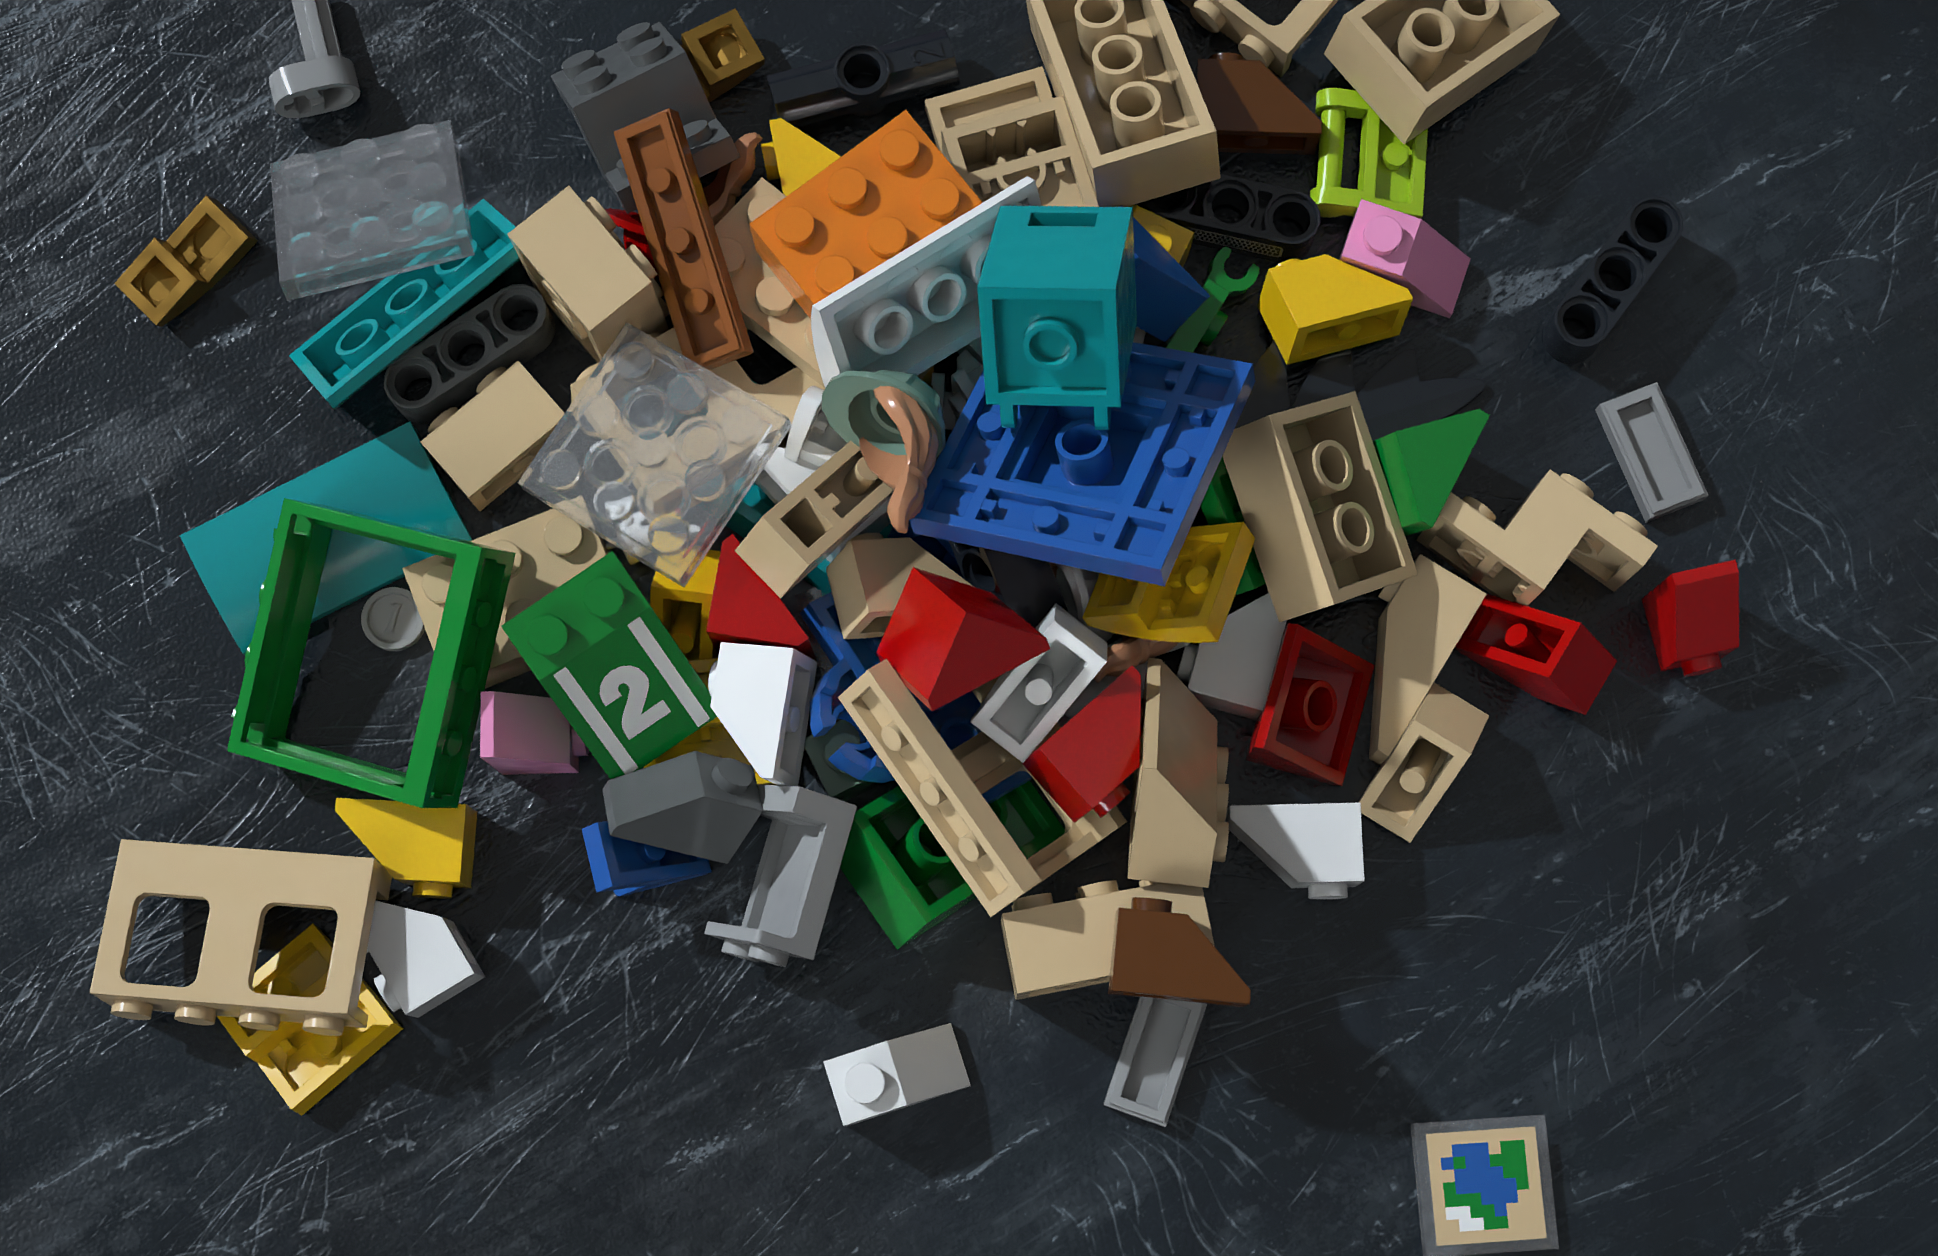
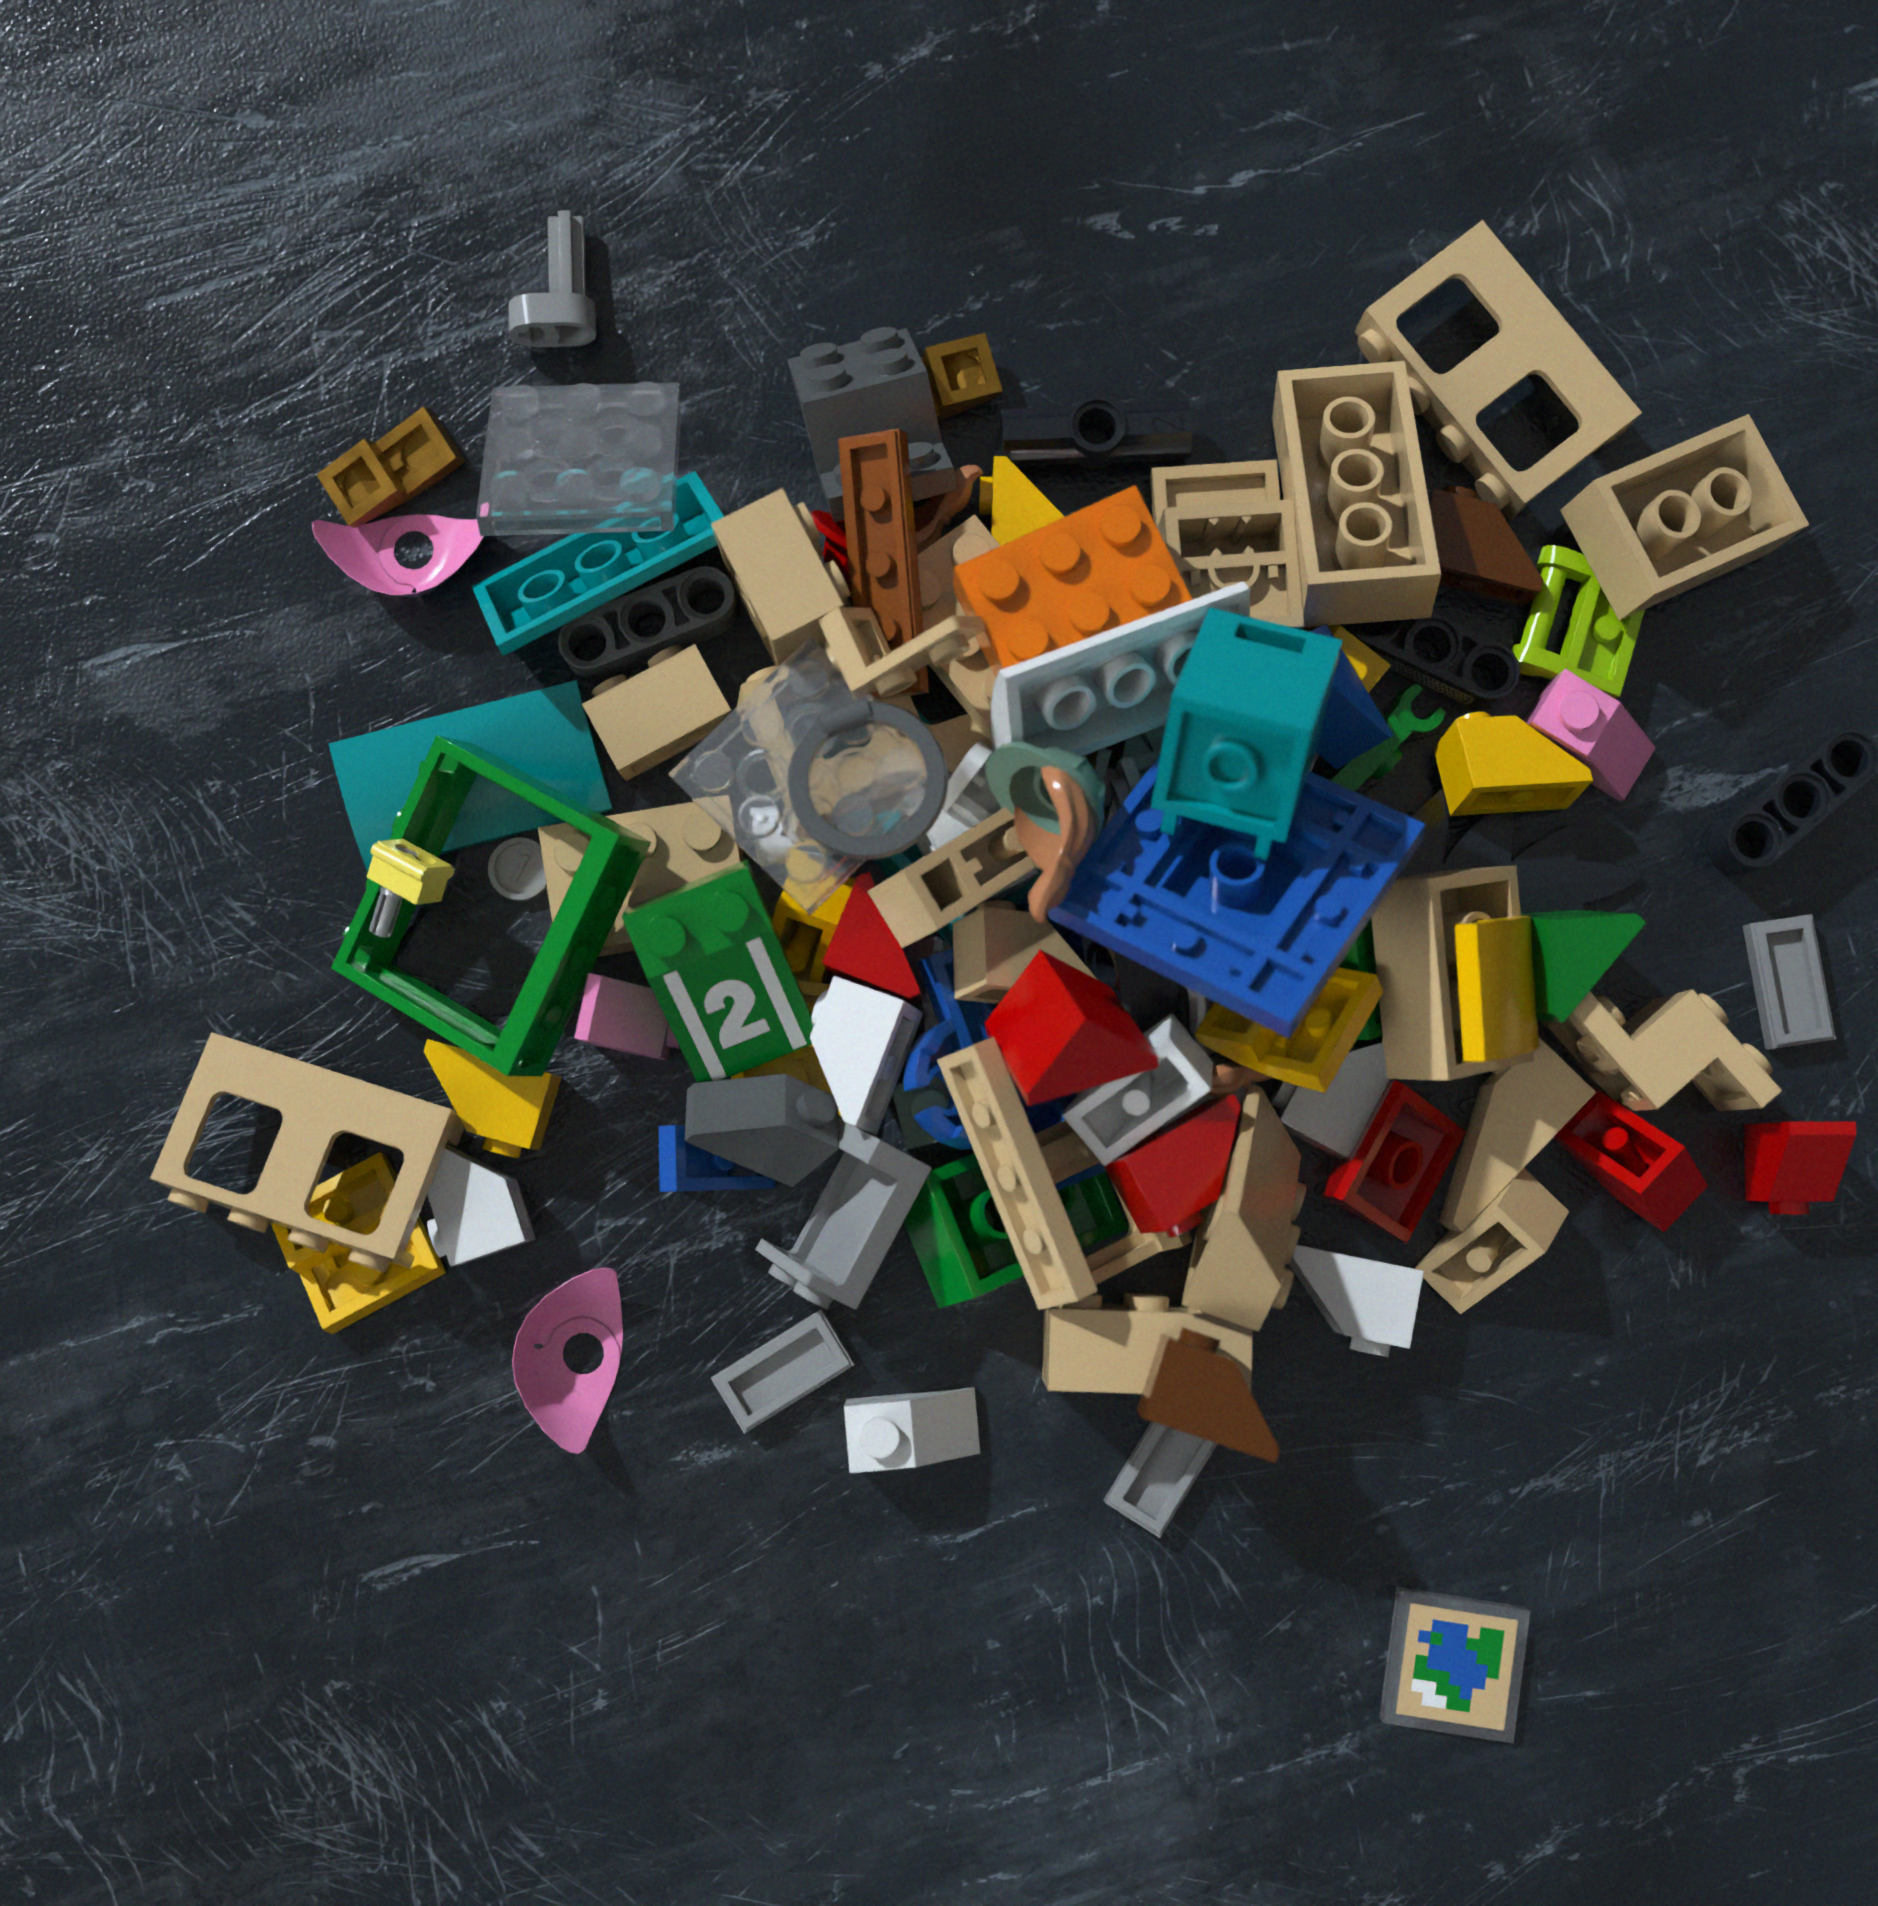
camera: 10 degrees right, 5 degrees up
(182, 345) = (369, 555): none -> bright pink piece
(281, 637) = (404, 873): none -> light yellow piece
(539, 1031) = (556, 1397): none -> bright pink piece
(679, 389) = (848, 718): none -> dark grey piece
(687, 334) = (866, 661): none -> tan bracket
(757, 1049) = (783, 1370): none -> light grey tile
(1360, 505) = (1496, 988): none -> yellow slope

